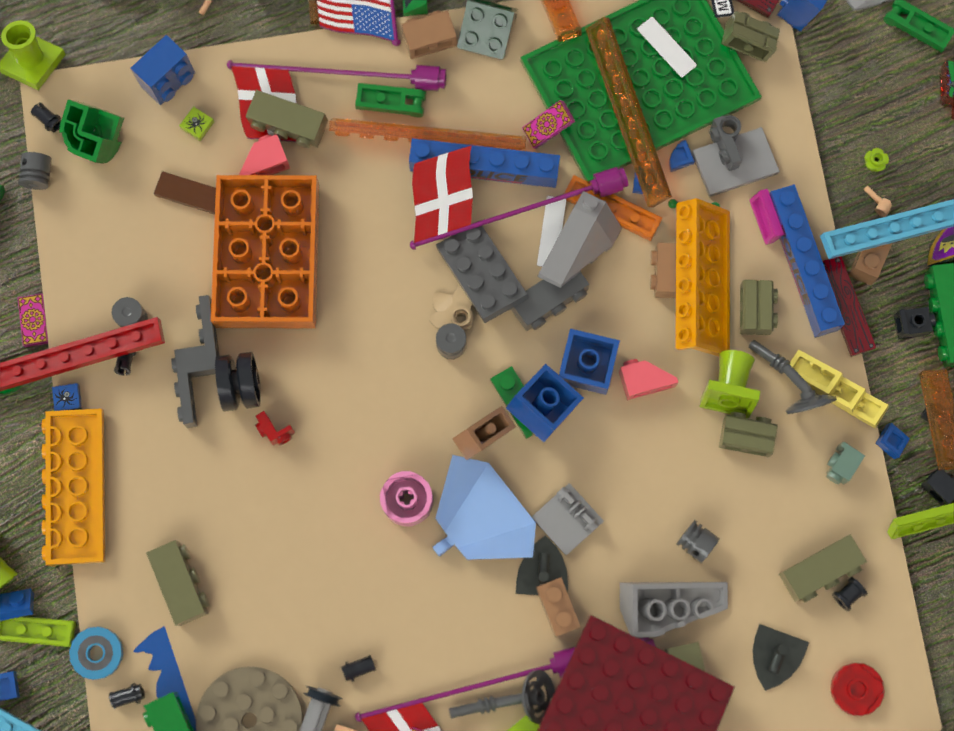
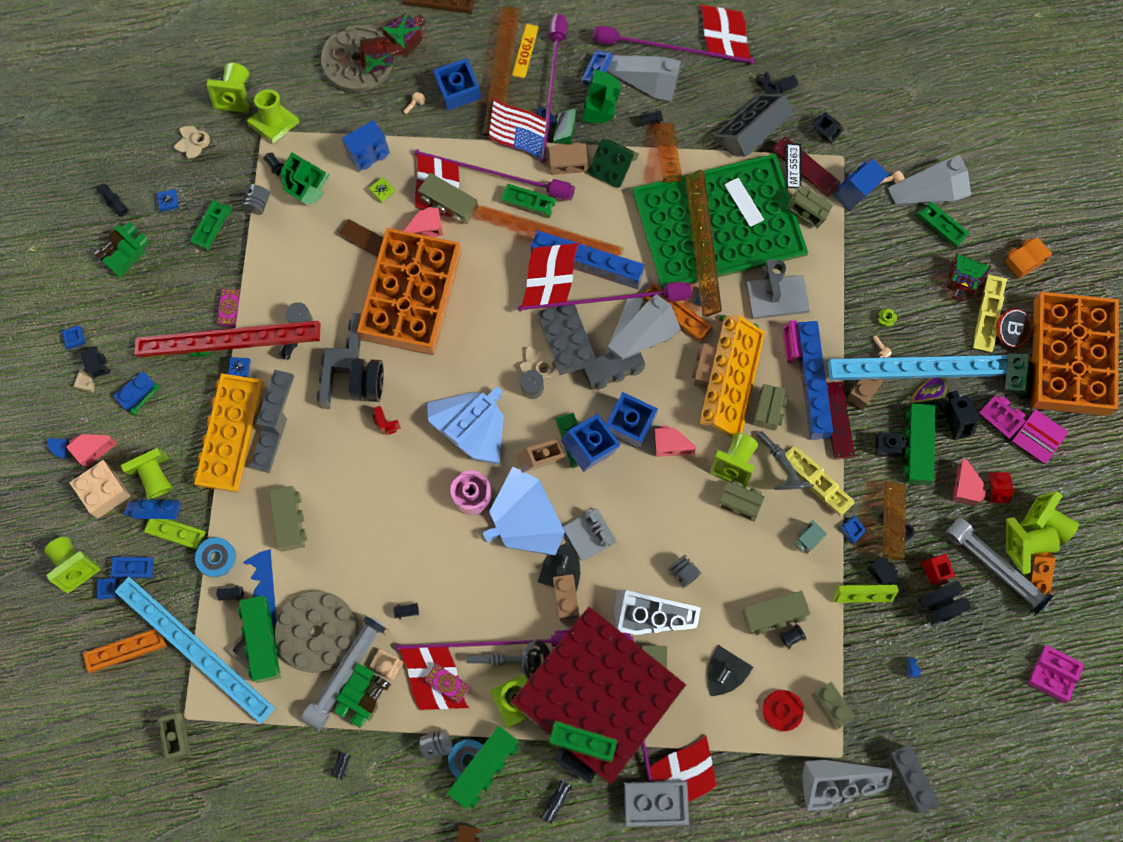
camera: 15 degrees right, 5 degrees down
(127, 460) = (271, 421): none -> dark grey bracket
(383, 408) = (471, 423): none -> light blue panel
(548, 124) = (642, 240): tile -> none
(681, 157) = (737, 285): blue tile -> none
(918, 670) = (833, 705): none -> olive brick

